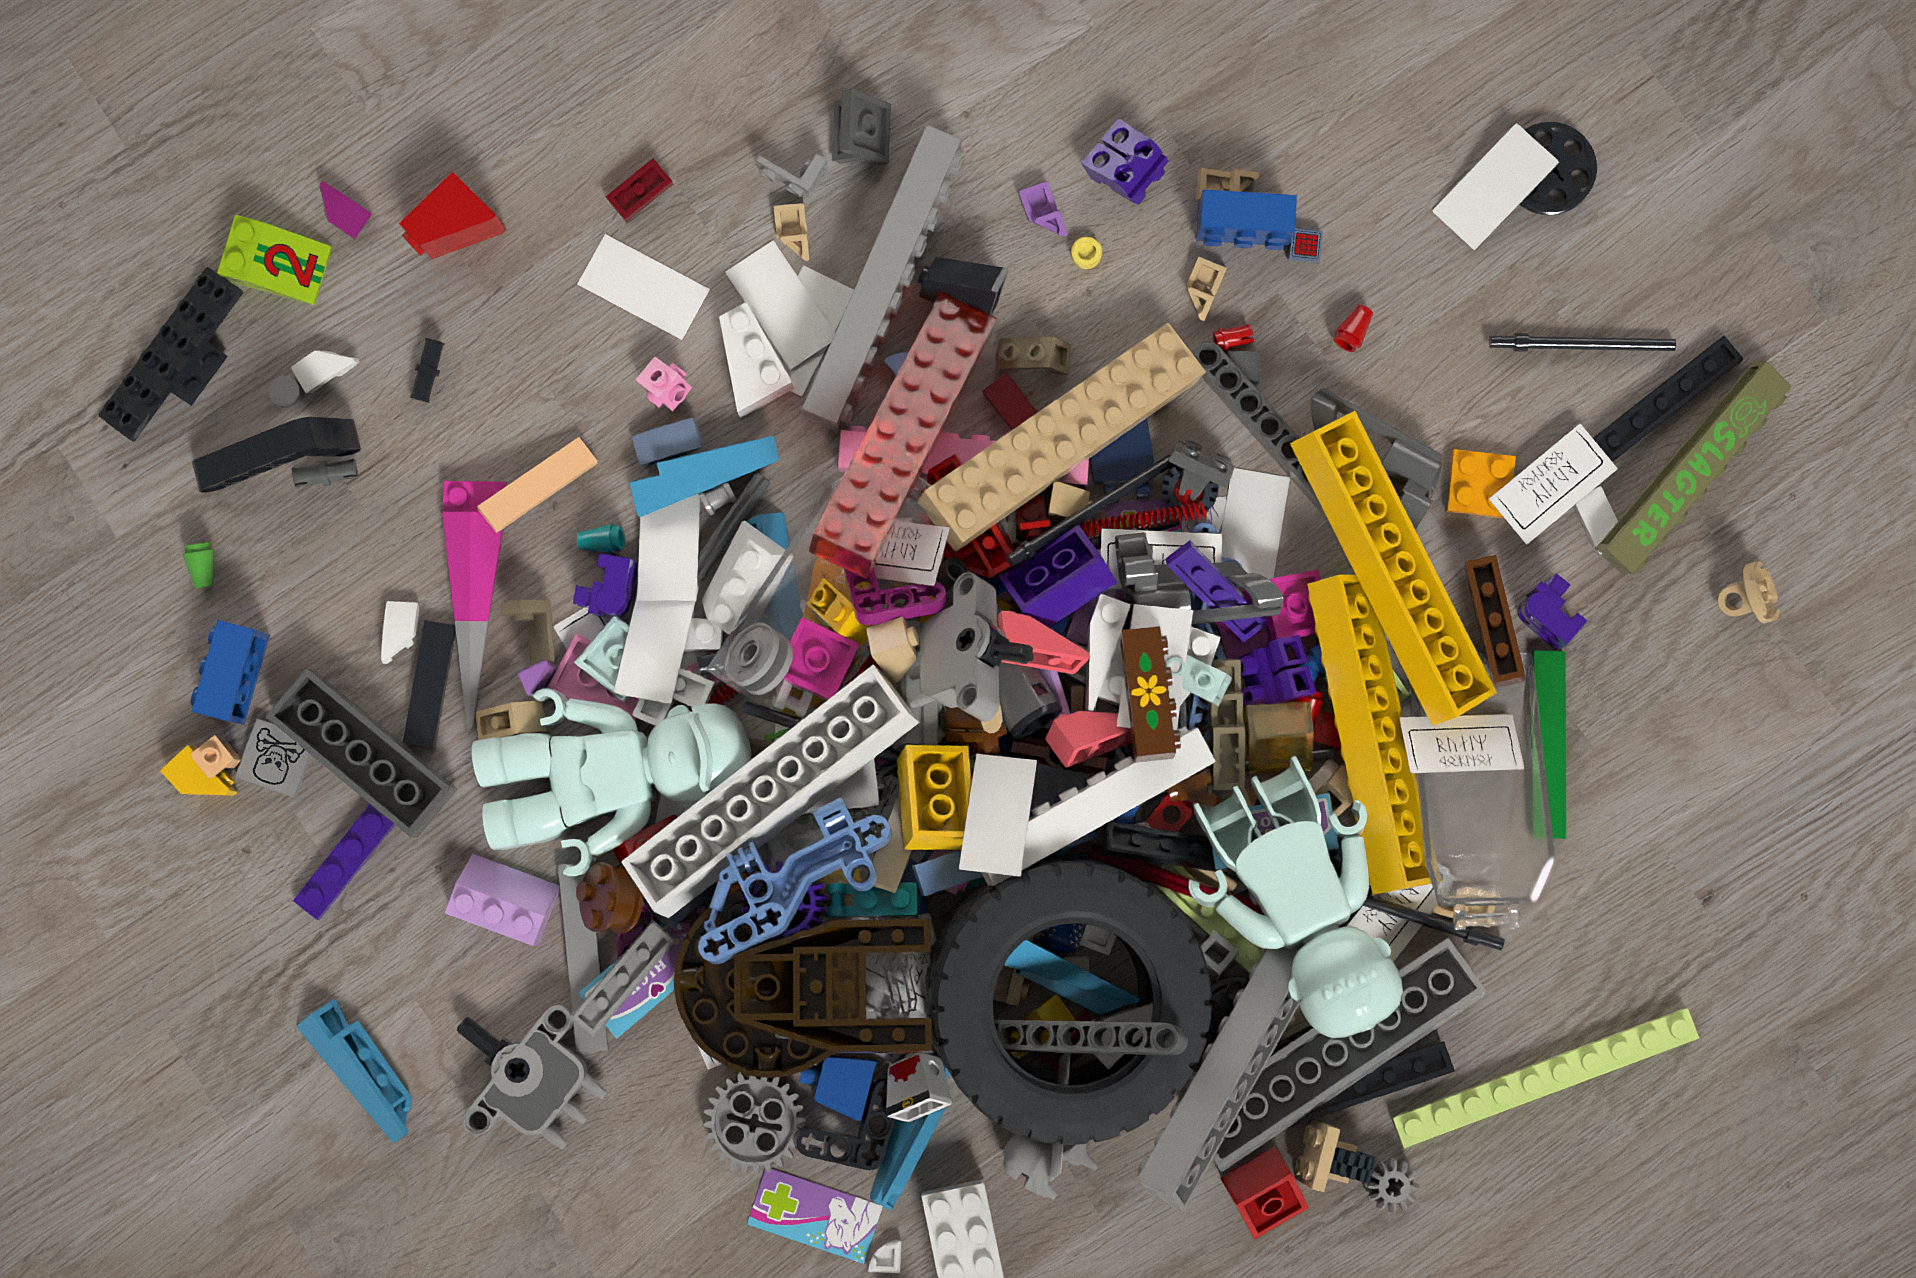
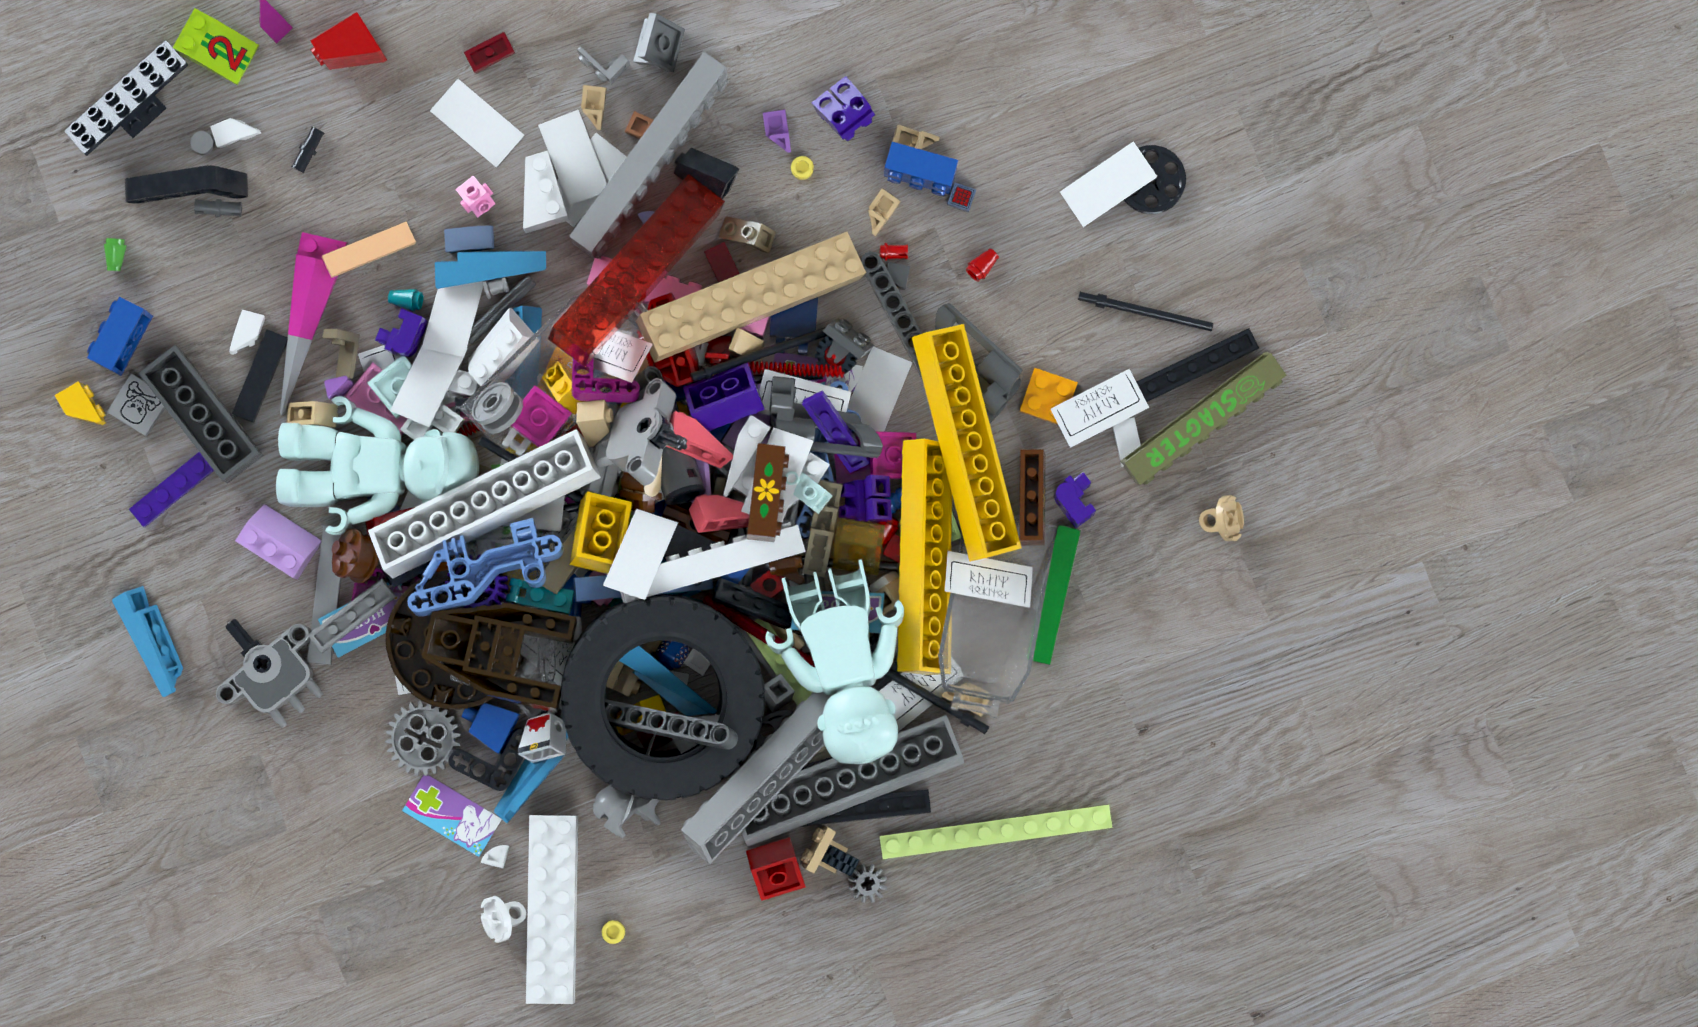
camera: 10 degrees right, 0 degrees up
(215, 756) = (96, 393): light nougat bracket -> none
(858, 243) = (638, 125): none -> nougat tile

